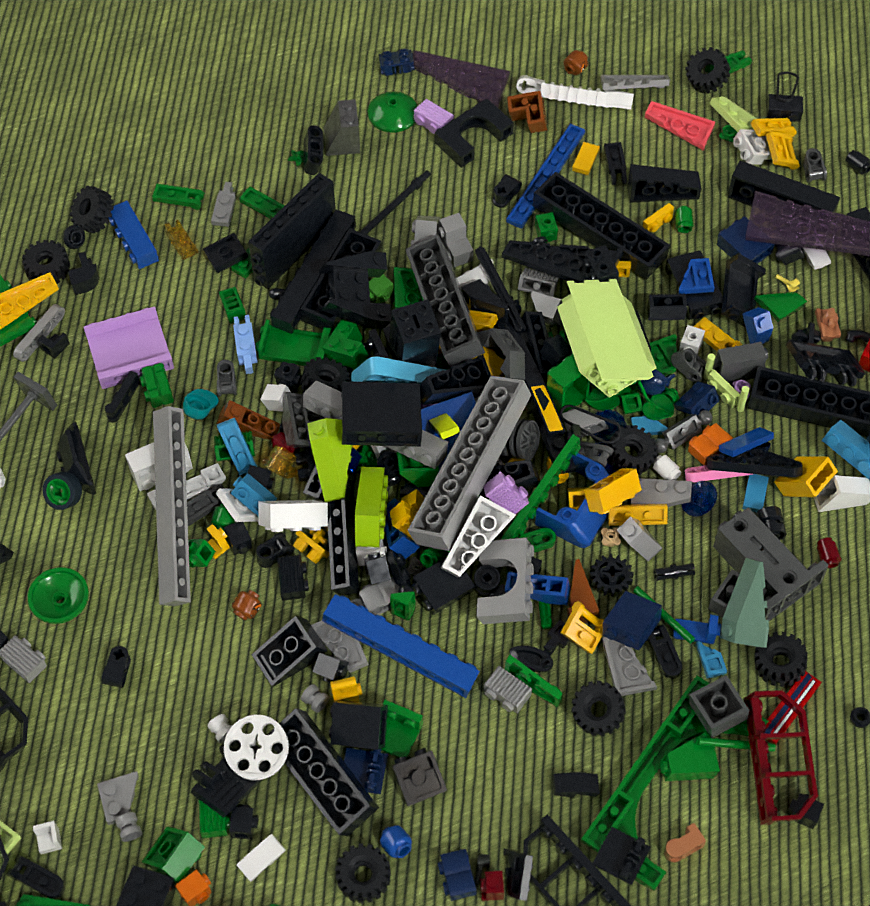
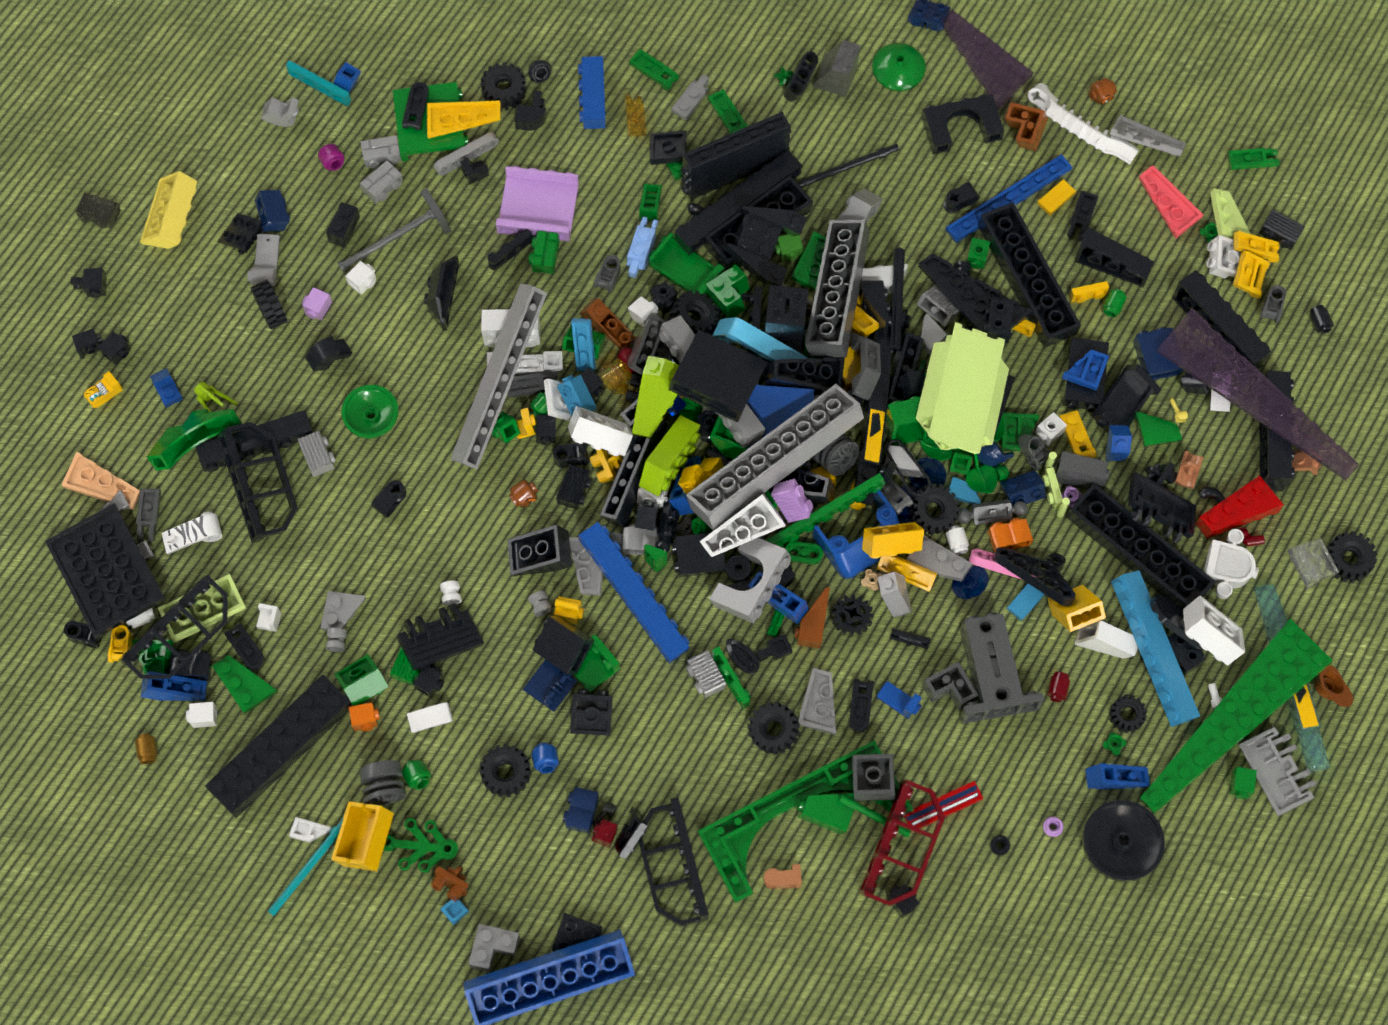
camera: 25 degrees right, 10 degrees up
(71, 490) = (416, 316): wheel -> none
(91, 209) = (566, 51): black tyre -> none
(199, 403) = (574, 286): teal cap -> none
(263, 754) = (465, 615): white wedge -> none
(324, 774) = (512, 670): black brick -> none
(330, 667) = (566, 583): brick -> none
(431, 116) = (931, 89): lavender brick -> none
(444, 426) = (771, 412): neon yellow tile -> none
(453, 235) = (883, 228): light grey brick -> none
(575, 783) = (720, 782): black slope -> none
(576, 497) = (857, 529): yellow brick -> none
(581, 633) = (795, 656): yellow plate -> none
(622, 855) = (722, 861): black hinge -> none
(632, 620) = (845, 665): dark blue brick -> none
(667, 307) = (1045, 385): black brick -> none
(668, 618) = (878, 673): green bar -> none
(711, 661) = (898, 733): dark azure tile -> none
(715, 77) = (1232, 167): black tyre -> none
(745, 613) = (942, 709): sand green wedge -> none
(746, 442) = (1043, 549): blue tile -> none
(773, 518) = (1021, 635): black wheel -> none
(784, 646) = (957, 747): black tyre -> none
(794, 89) = (1305, 190): black piece -> none

